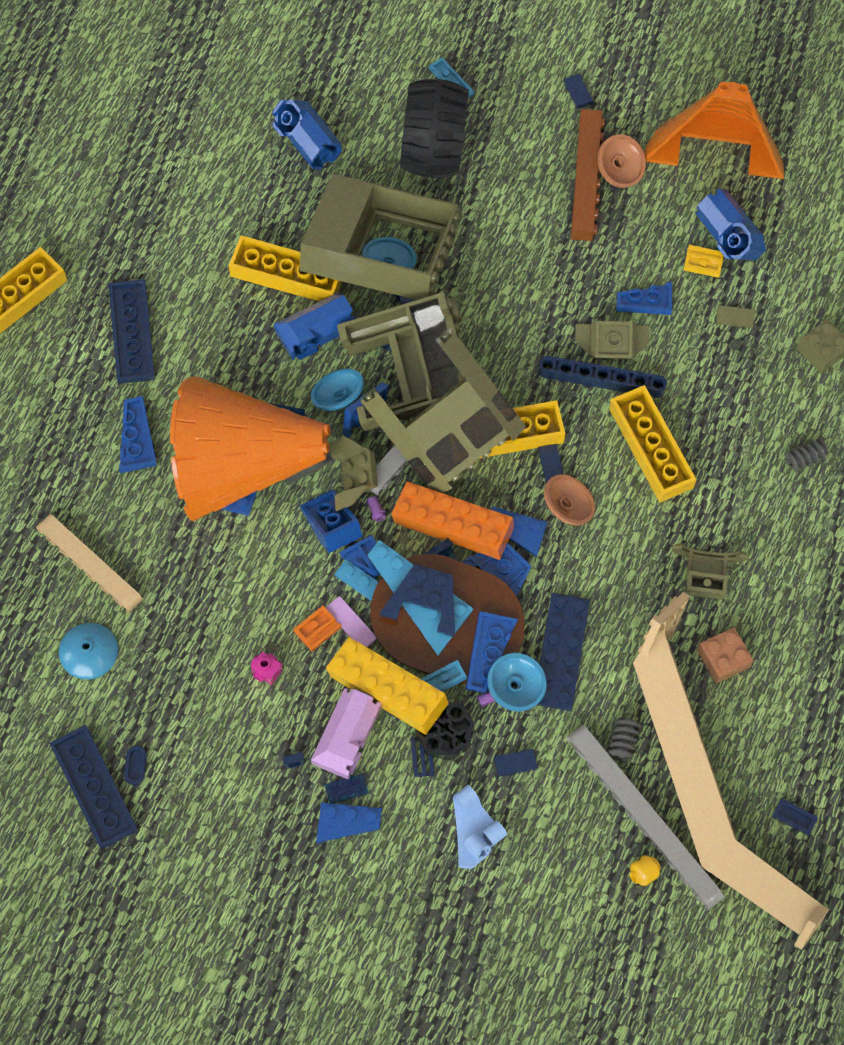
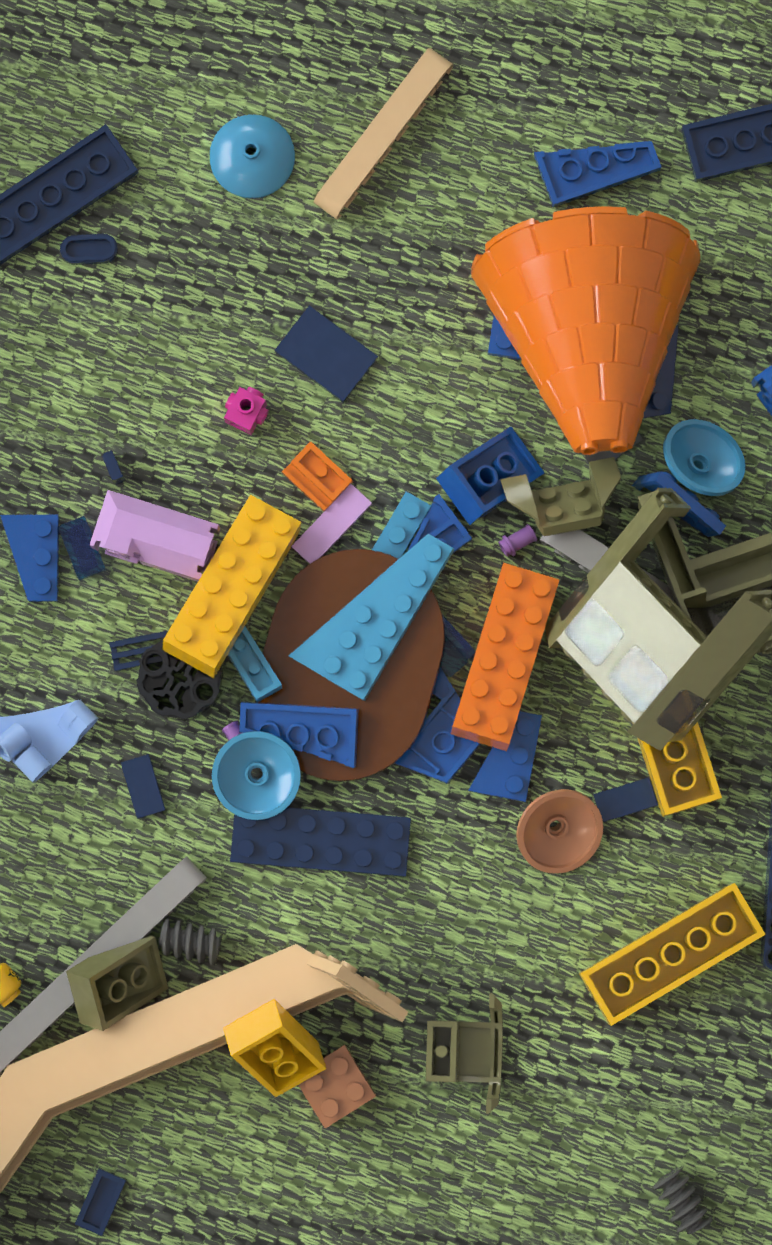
camera: 90 degrees right, 15 degrees up
(233, 615) = (326, 354): none -> dark blue tile
(425, 589) = (379, 630): dark blue wing -> none
(650, 787) = (116, 982): none -> olive slope
(701, 680) = (274, 1048): none -> yellow brick

